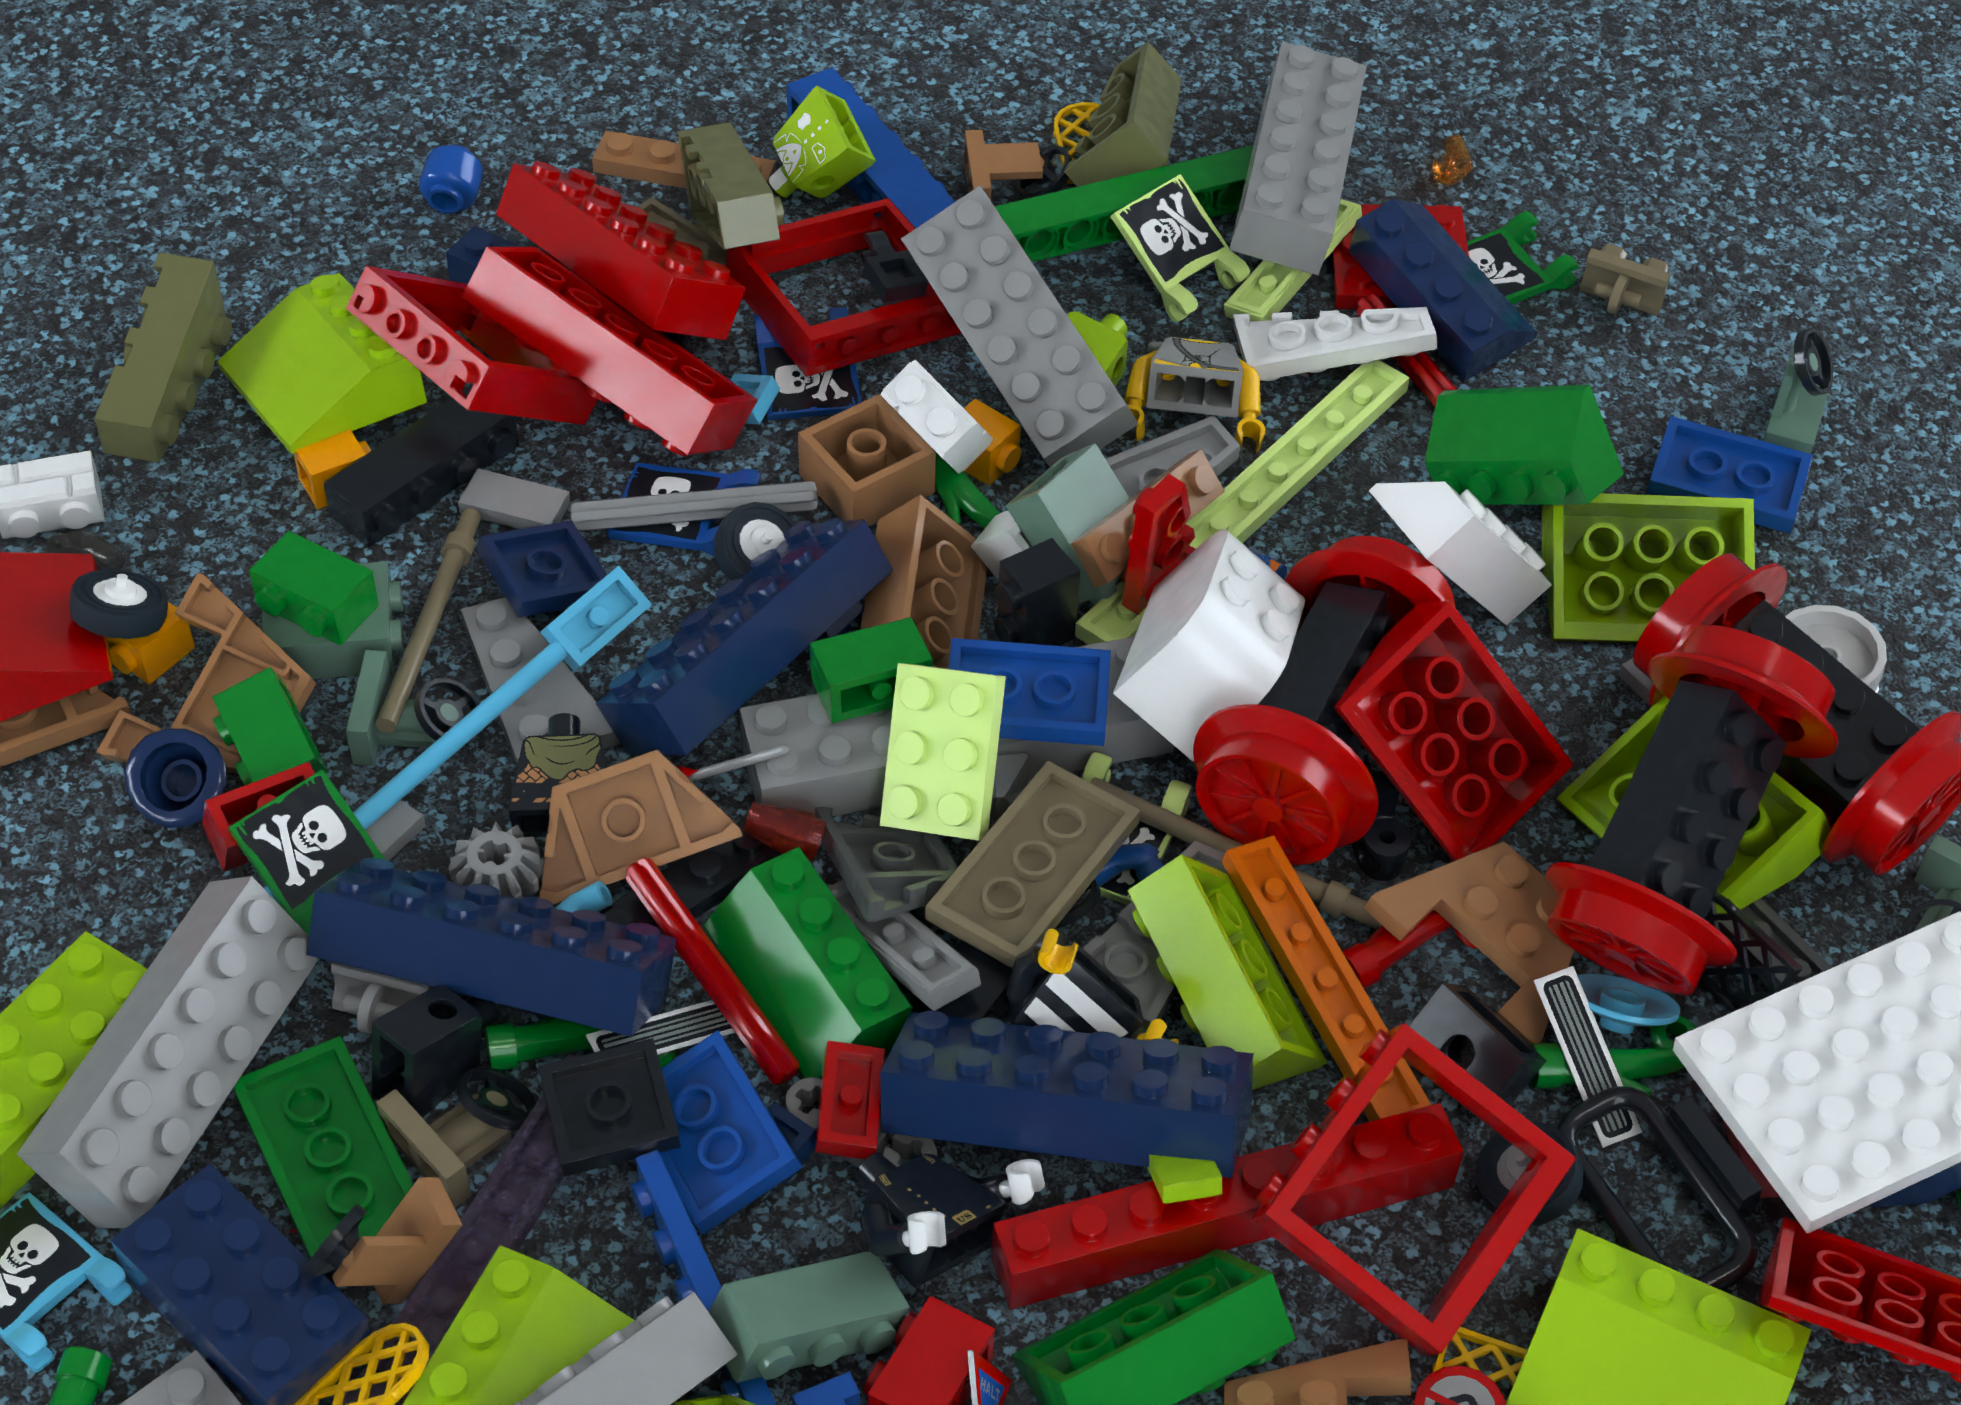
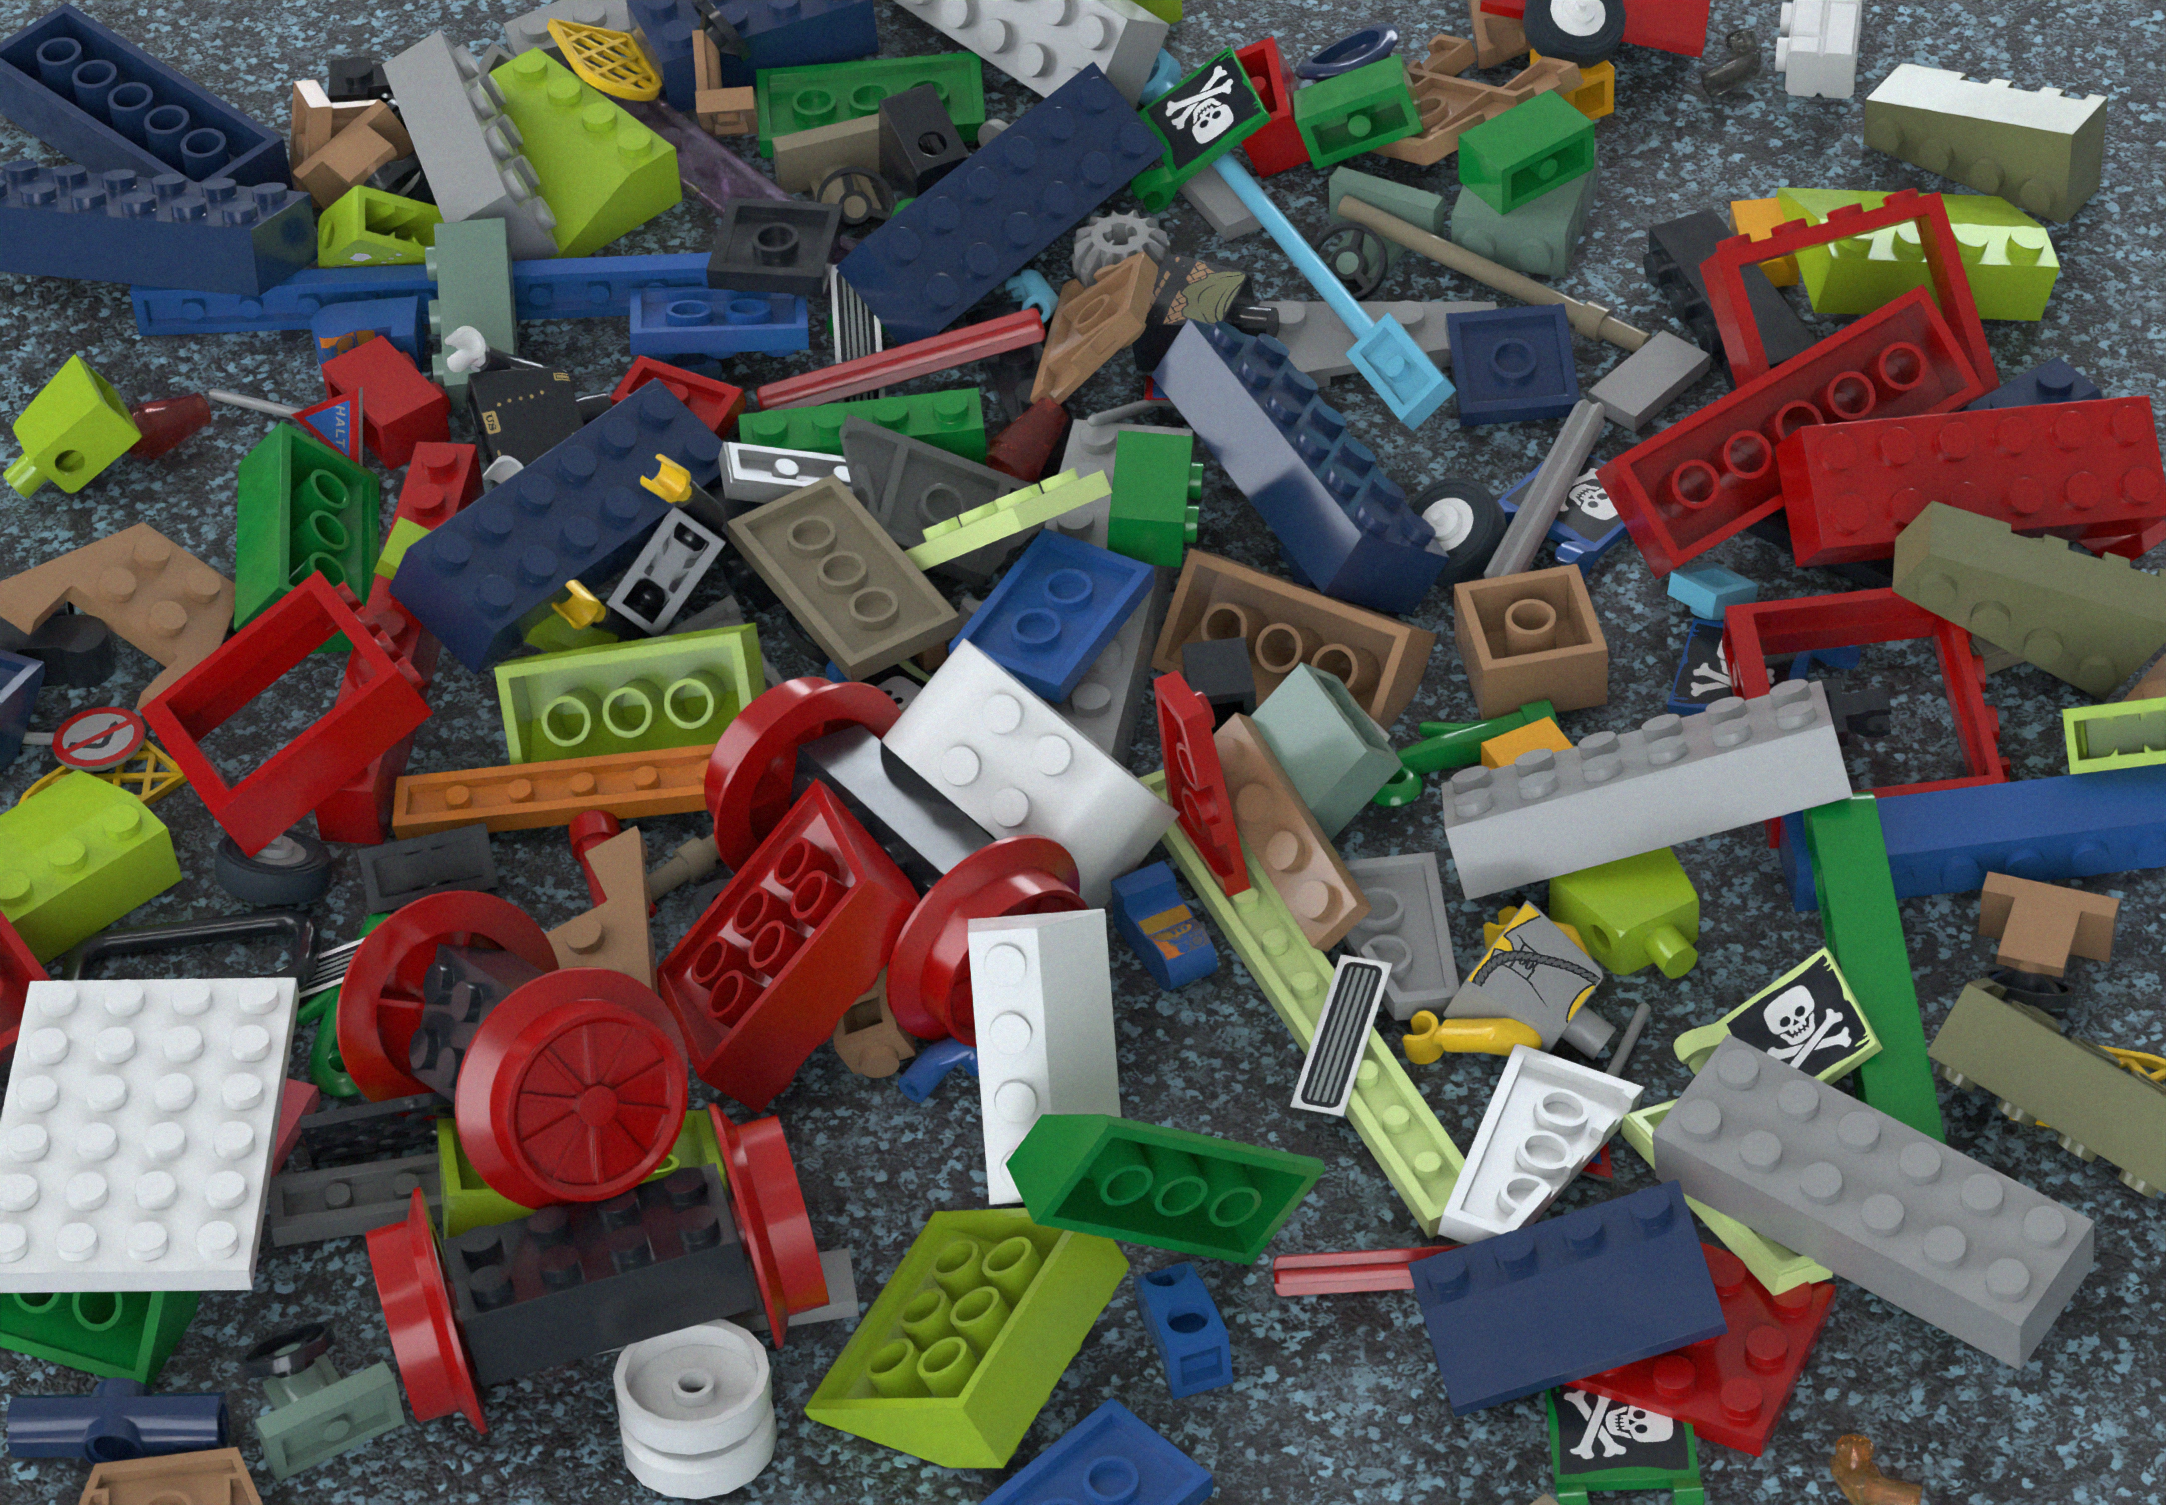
camera: 120 degrees right, 5 degrees down
(936, 416) = (1535, 678): white brick -> none
(1286, 460) = (1341, 1035): none -> sticker

